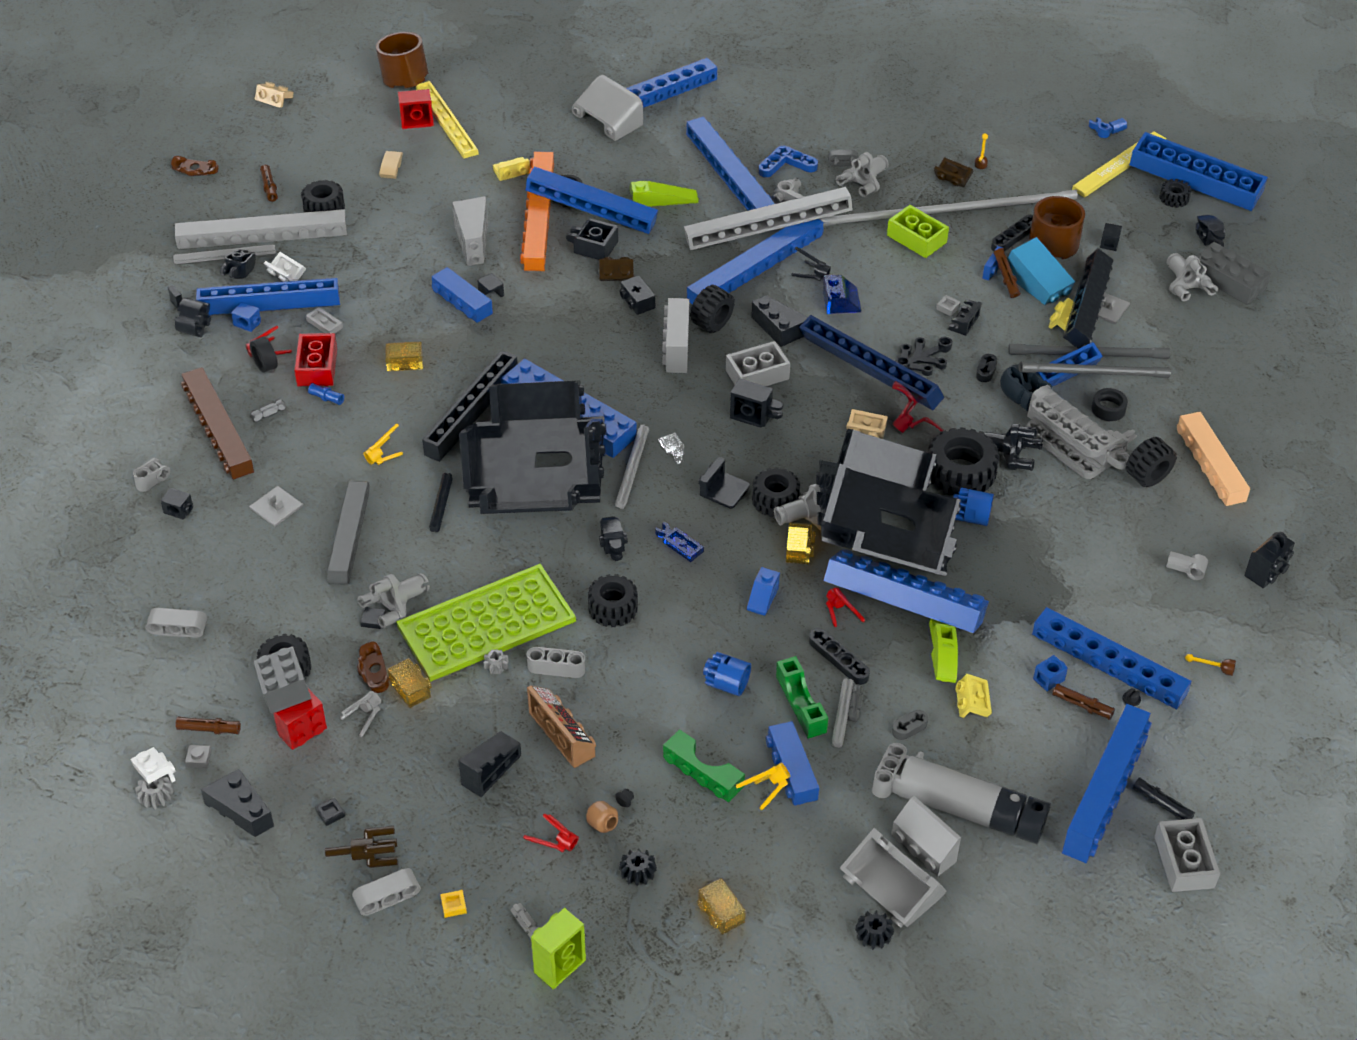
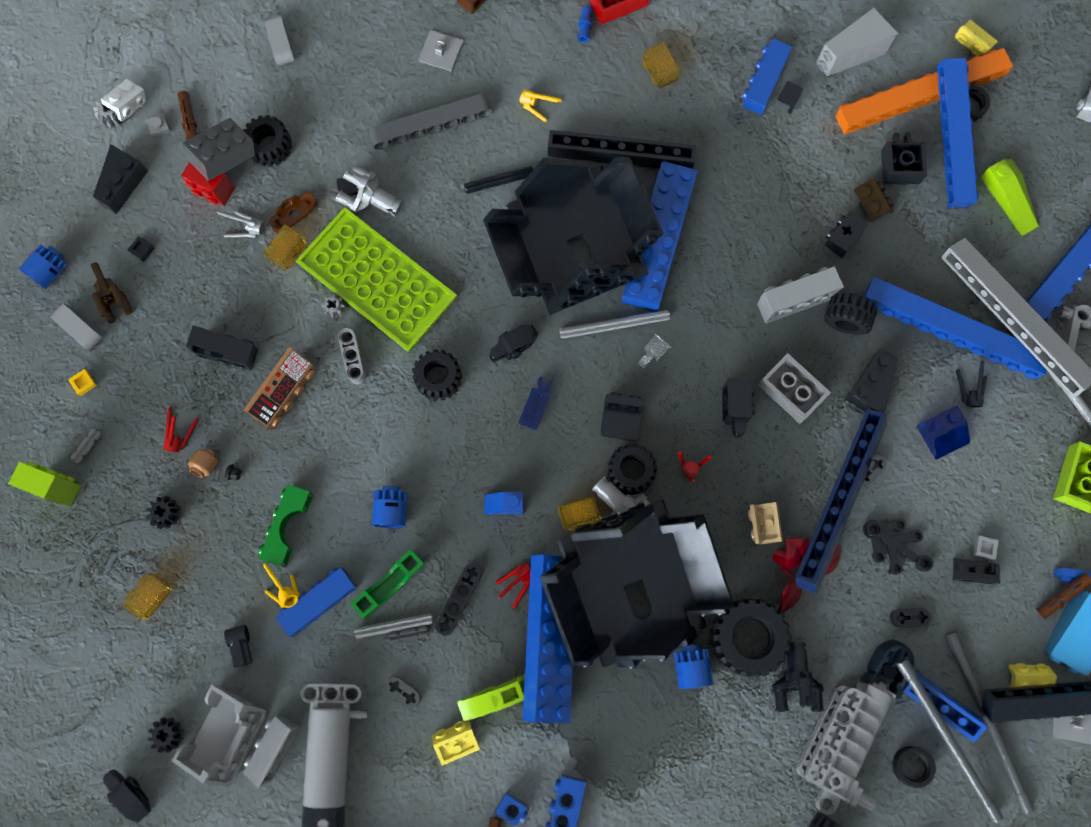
camera: 70 degrees right, 30 degrees up
(300, 897) = (43, 265): none -> blue gear
(794, 457) = (691, 468): none -> red plant
(802, 840) = (237, 639): none -> black piece
(924, 980) = (126, 796): none -> black hinge

